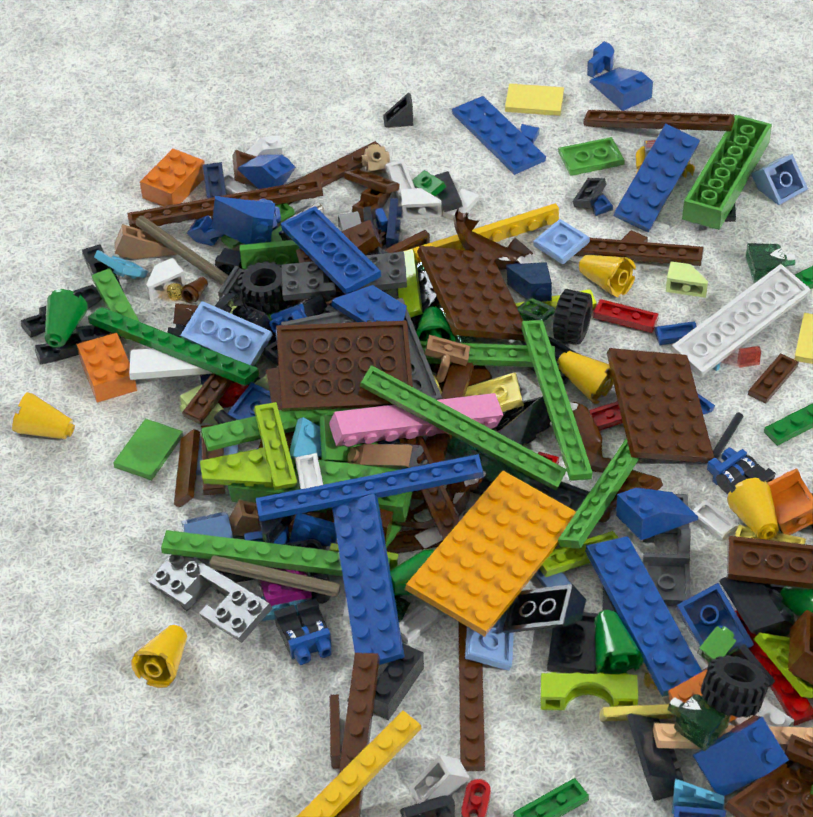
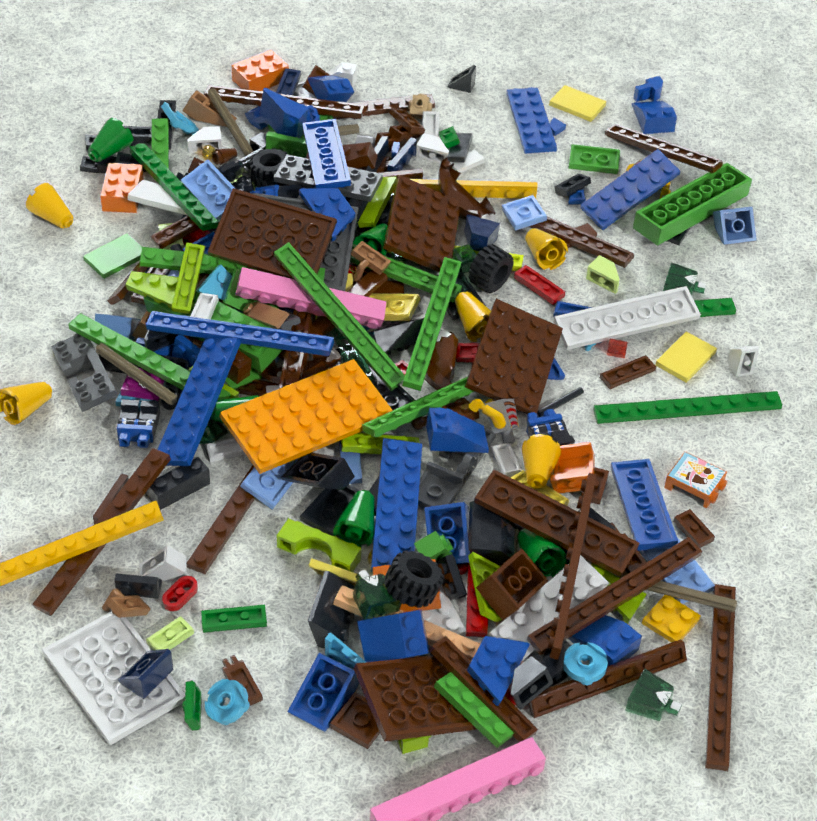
camera: 20 degrees right, 0 degrees up
(687, 474) = (501, 415): none -> torso

